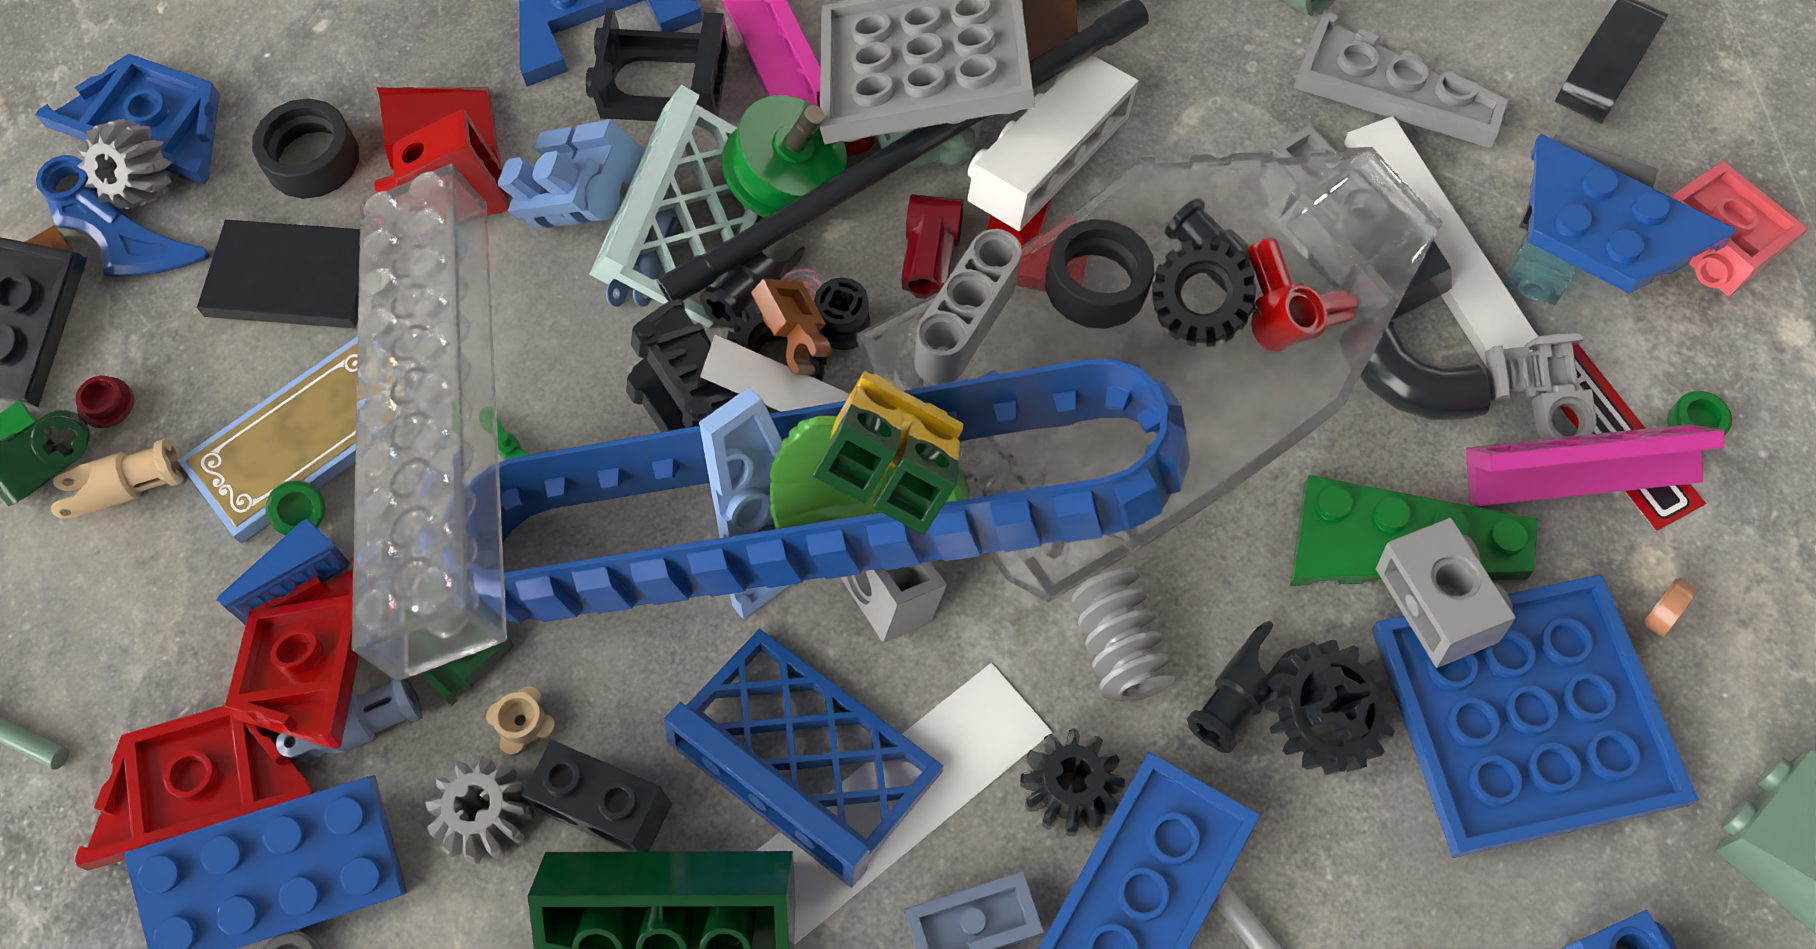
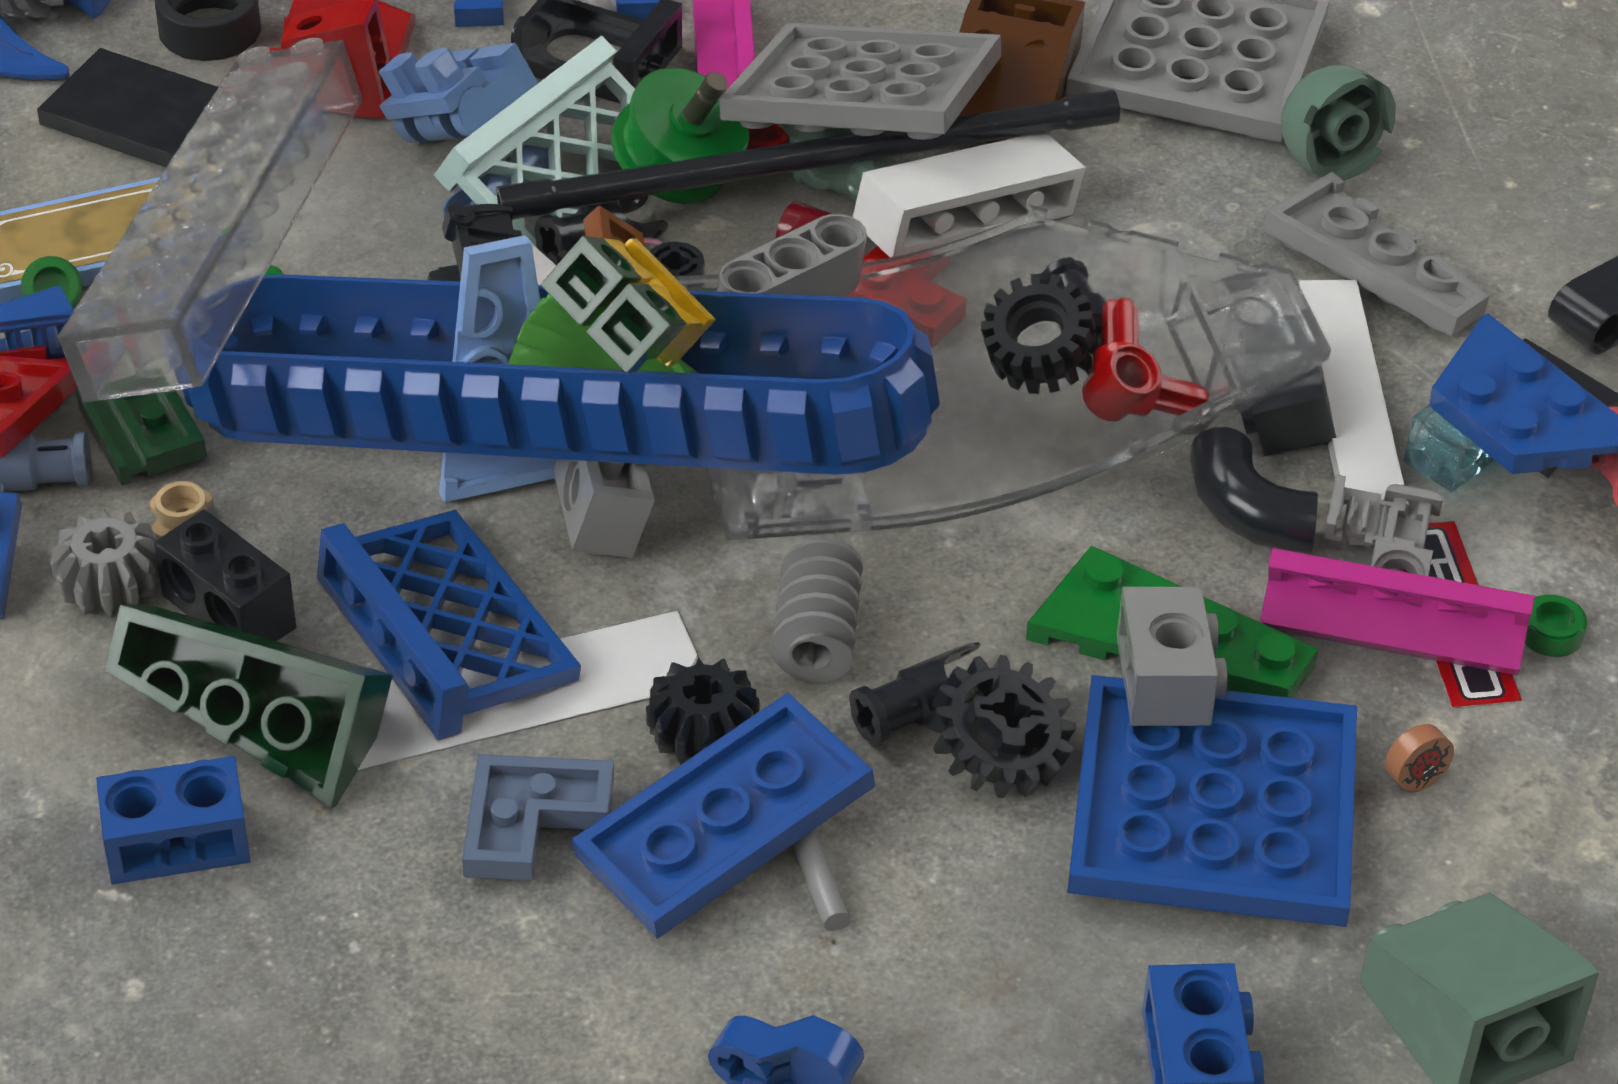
camera: 15 degrees right, 20 degrees down
(1099, 239) = (950, 267): black tyre -> none

